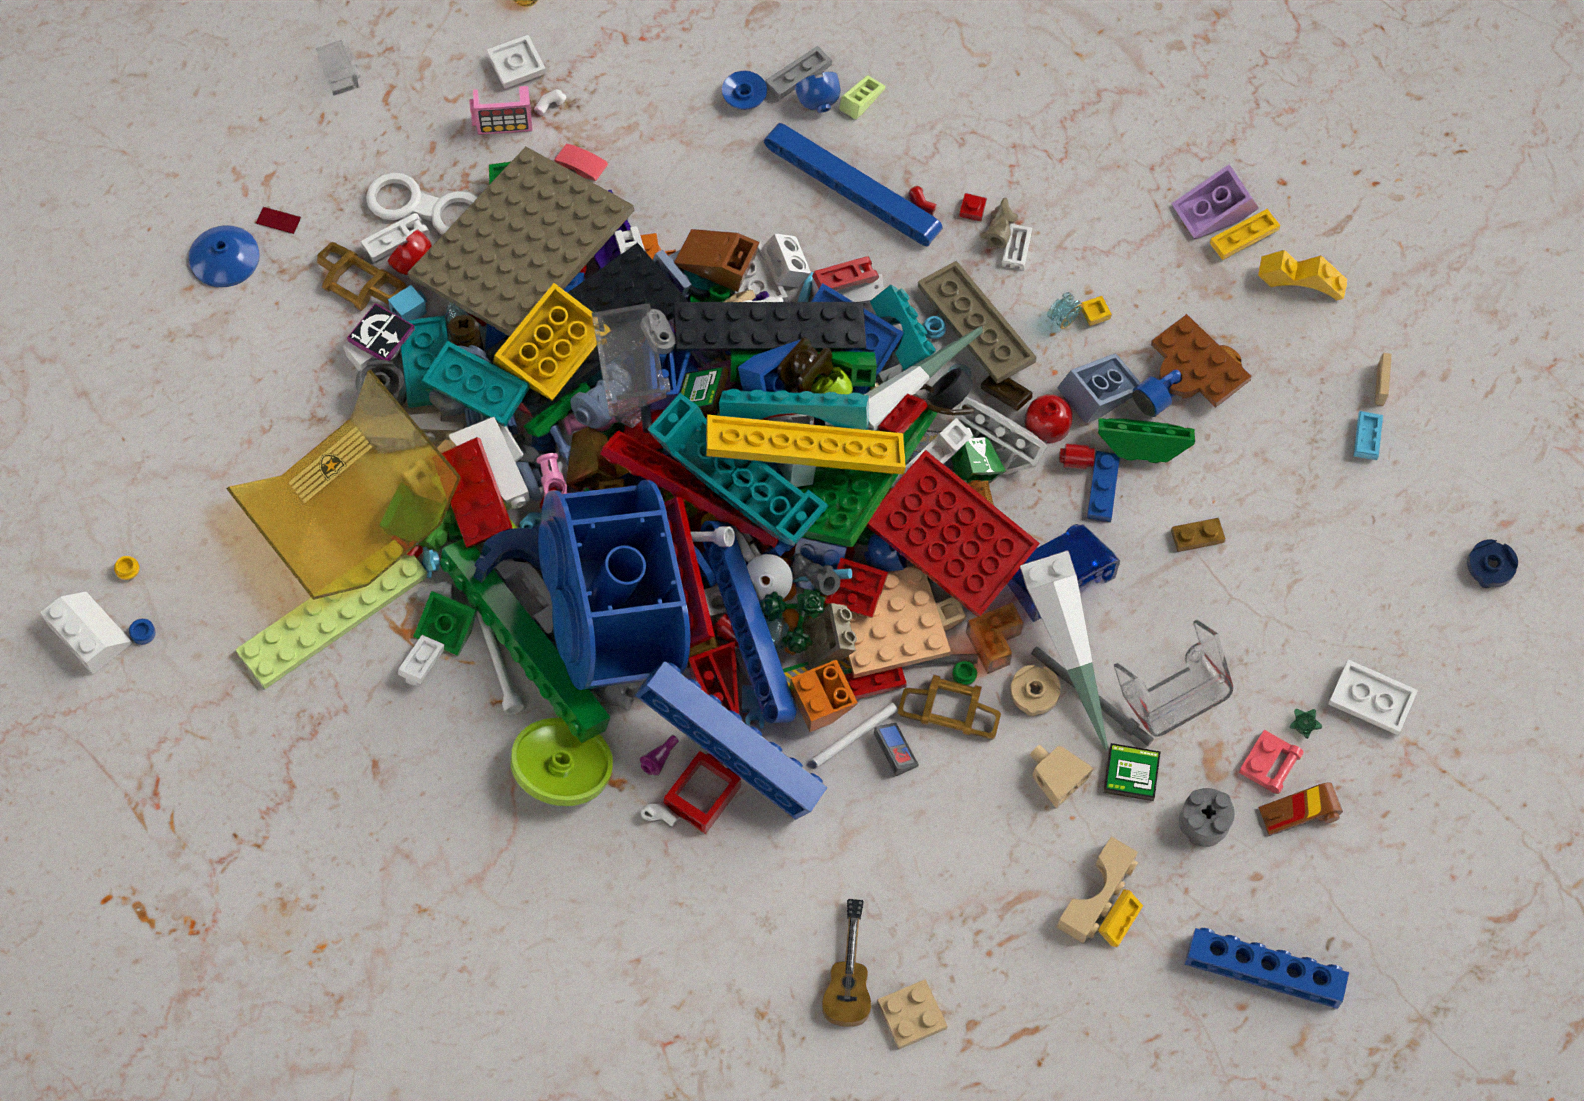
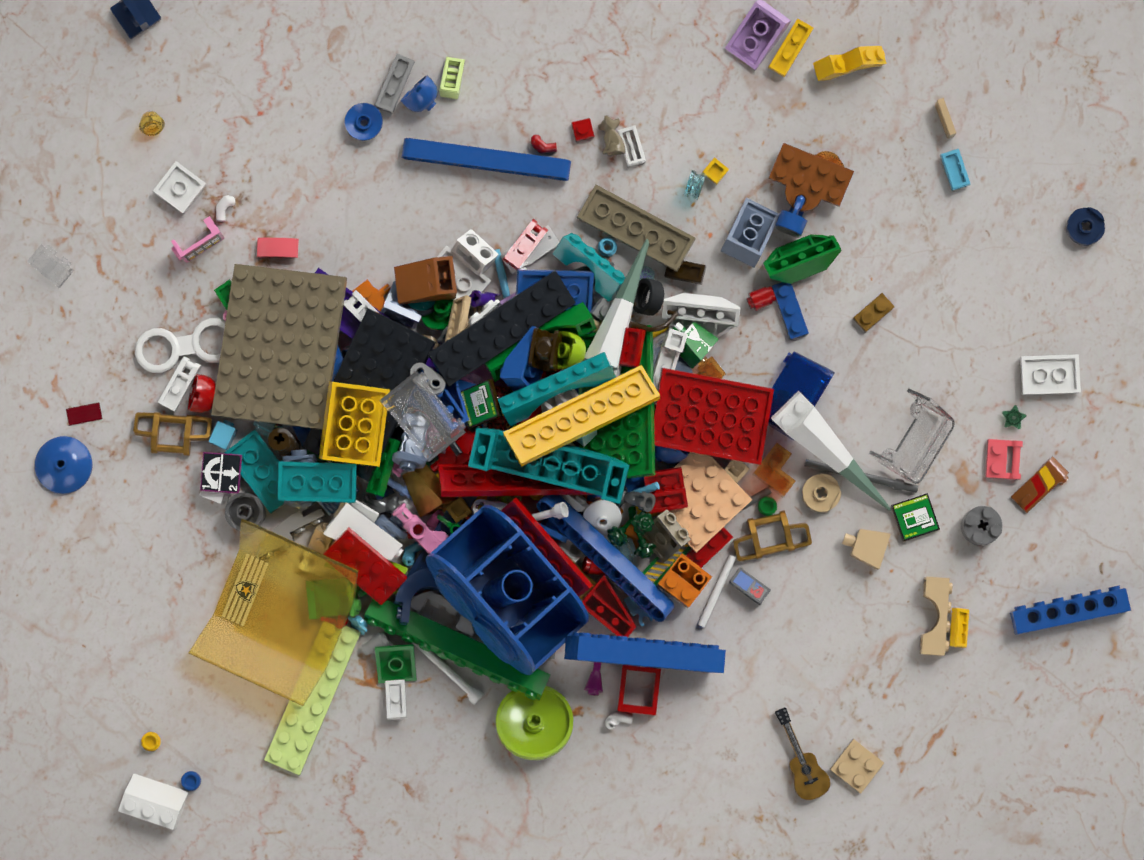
camera: 25 degrees left, 20 degrees up
(1049, 418) = (725, 277): red cylinder -> none

